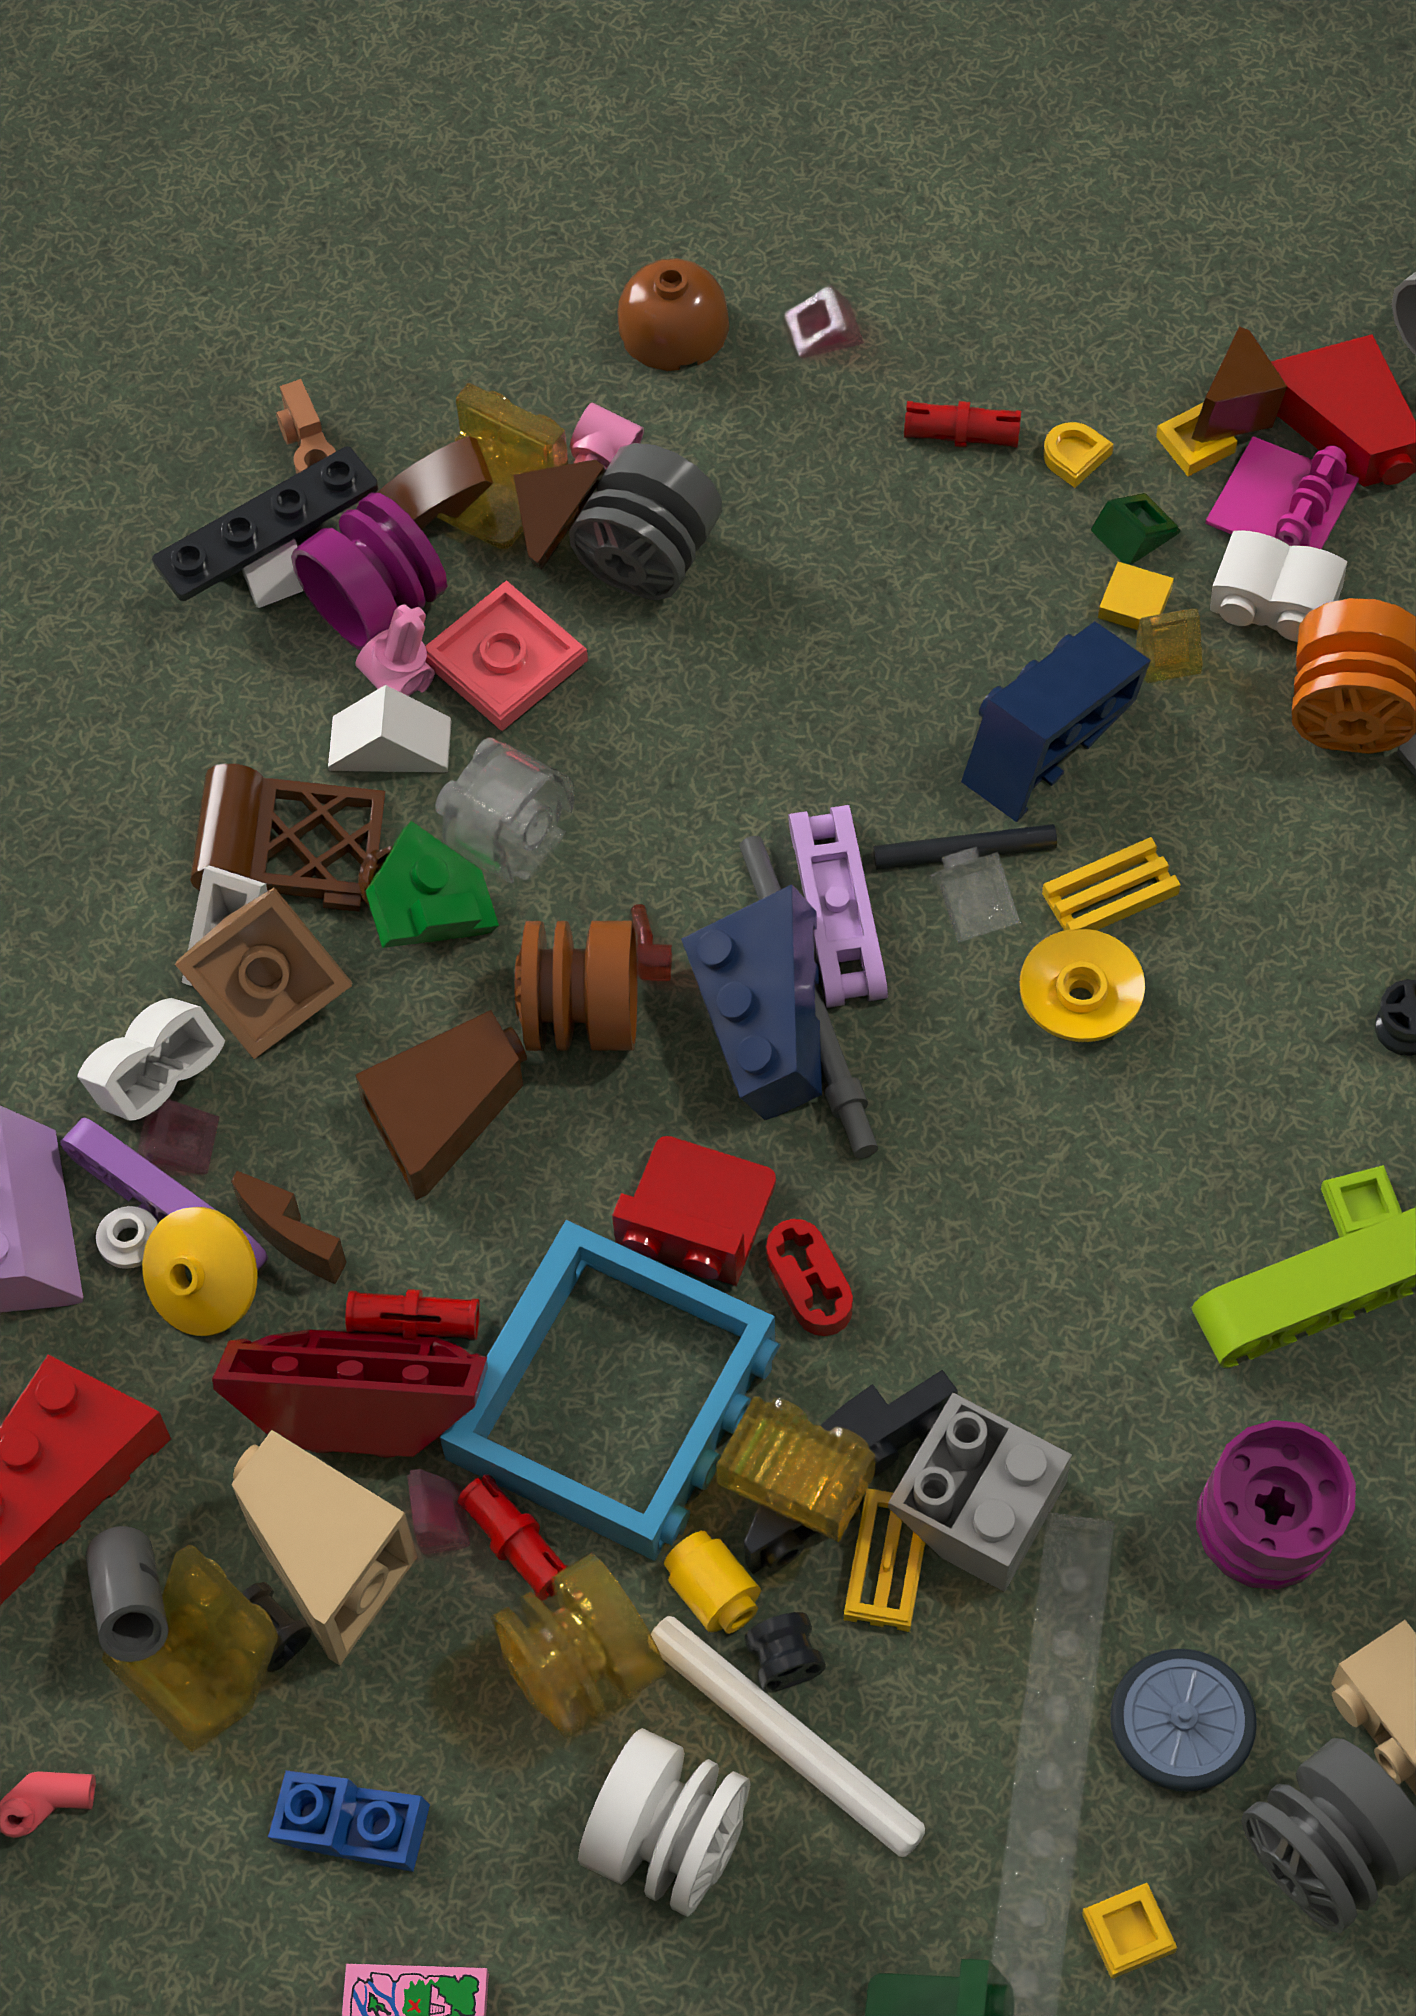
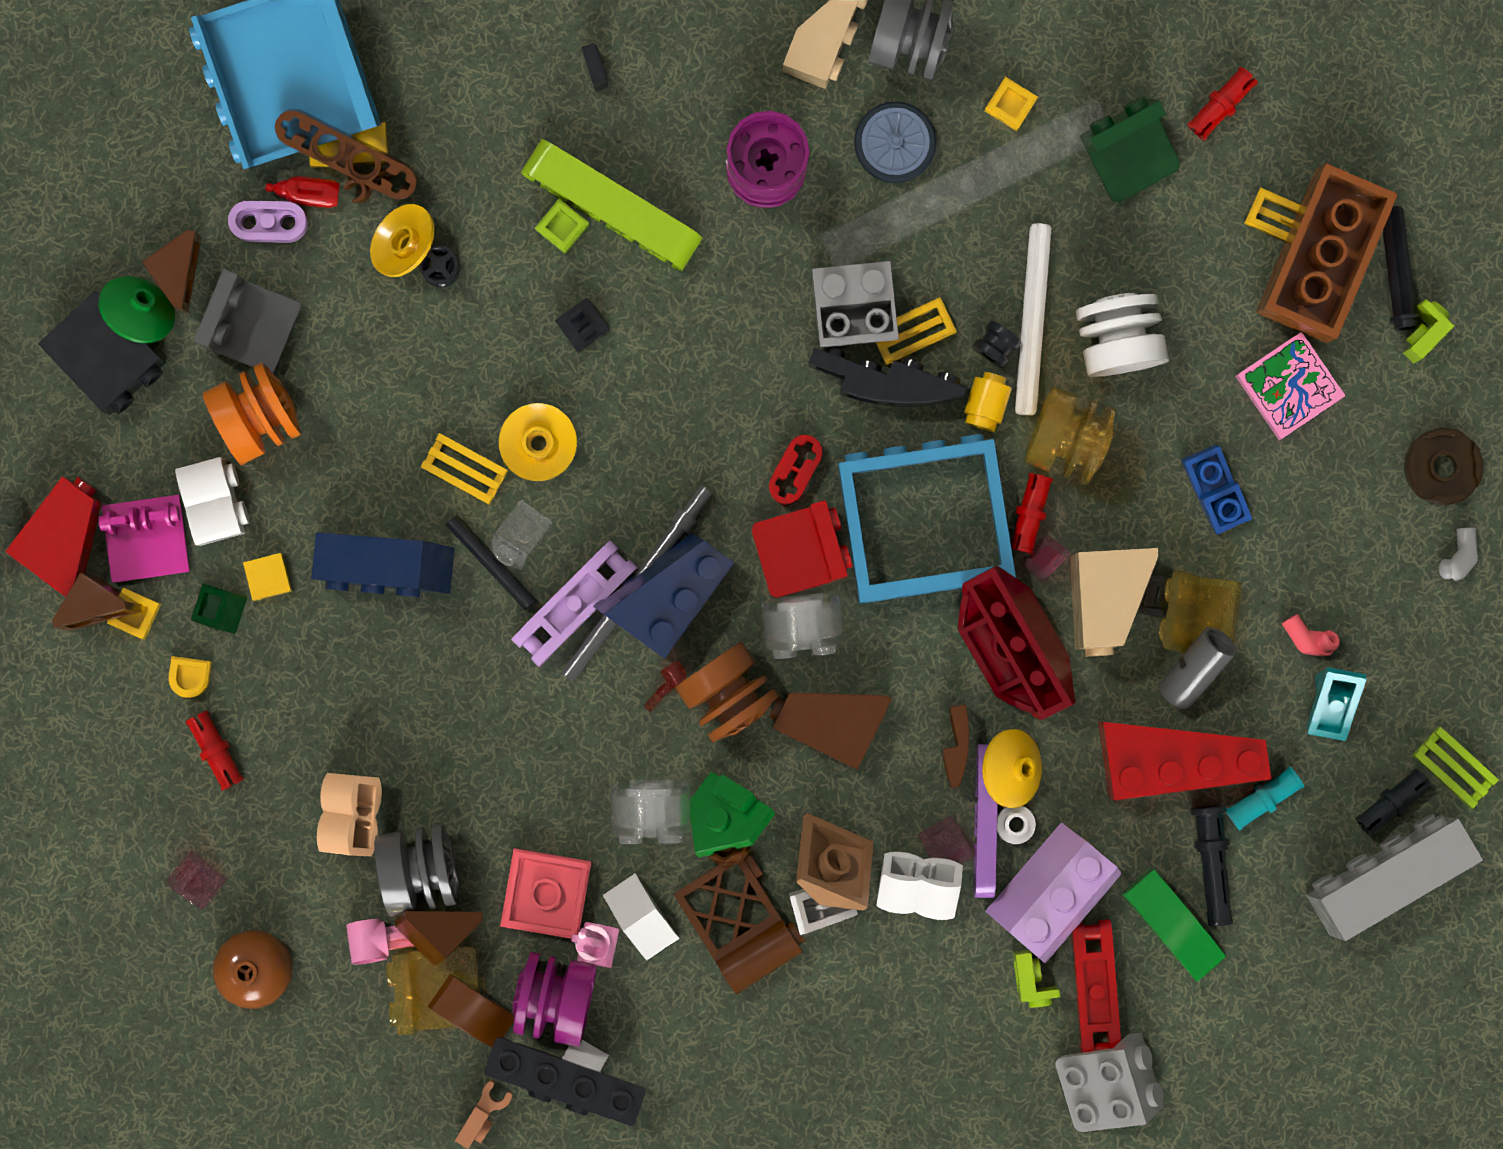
camera: 130 degrees left, 25 degrees up
(369, 1311) = (954, 649): red pin -> none
(593, 1133) = (802, 624): none -> clear brick
(775, 505) = (349, 814): none -> light nougat brick
(797, 1466) = (915, 390): clear yellow brick -> none
(1171, 644) = (291, 534): clear yellow slope -> none
(1204, 1143) = (582, 325): none -> black tile

